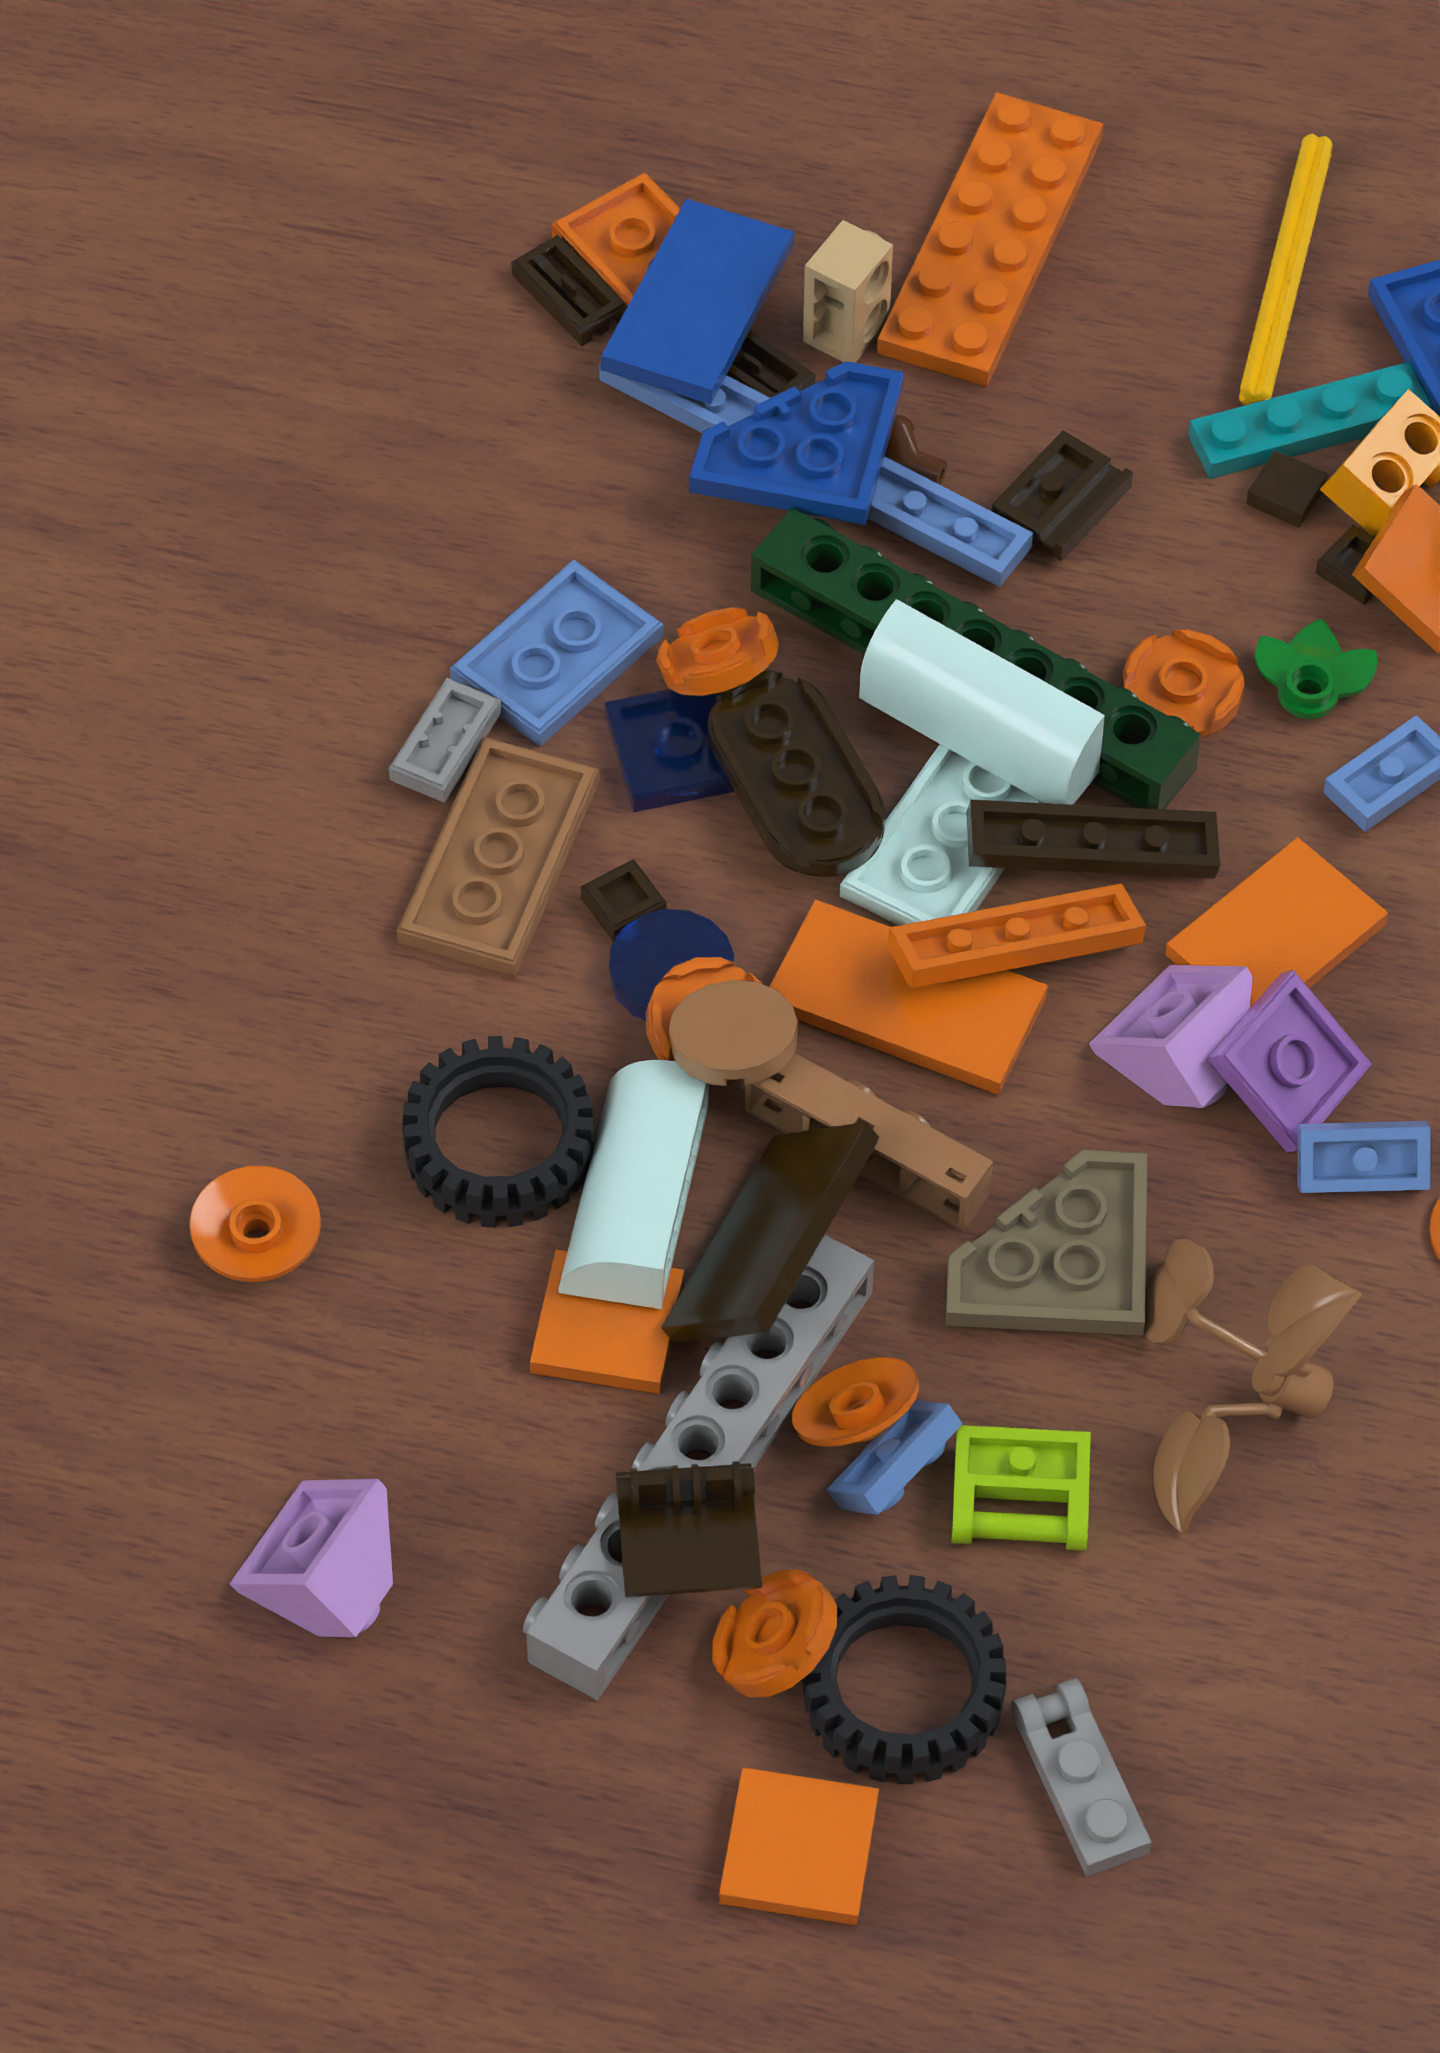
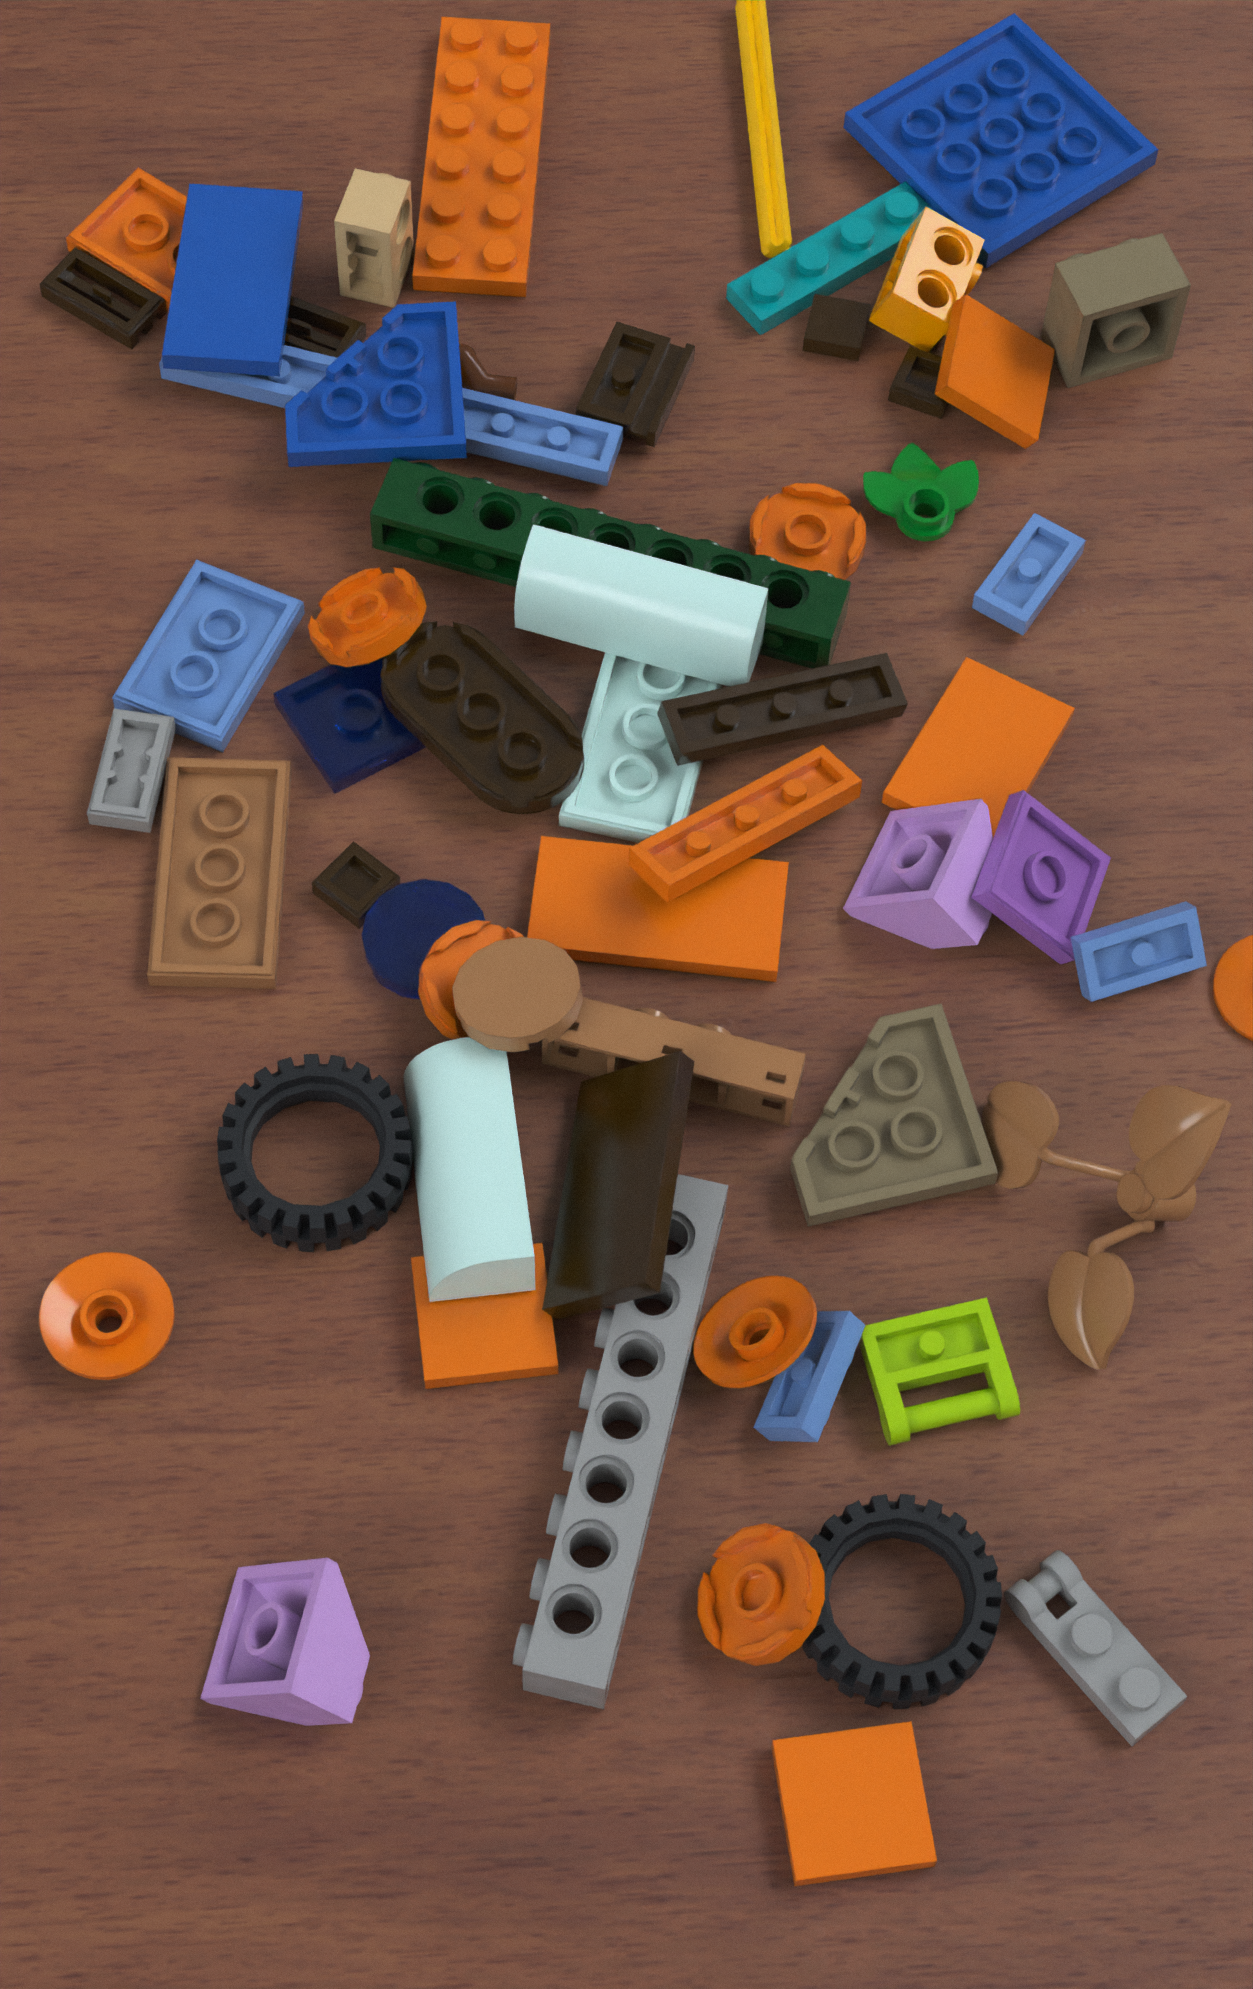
camera: 20 degrees left, 5 degrees up
(688, 1529) = (648, 1517): dark brown hinge -> none

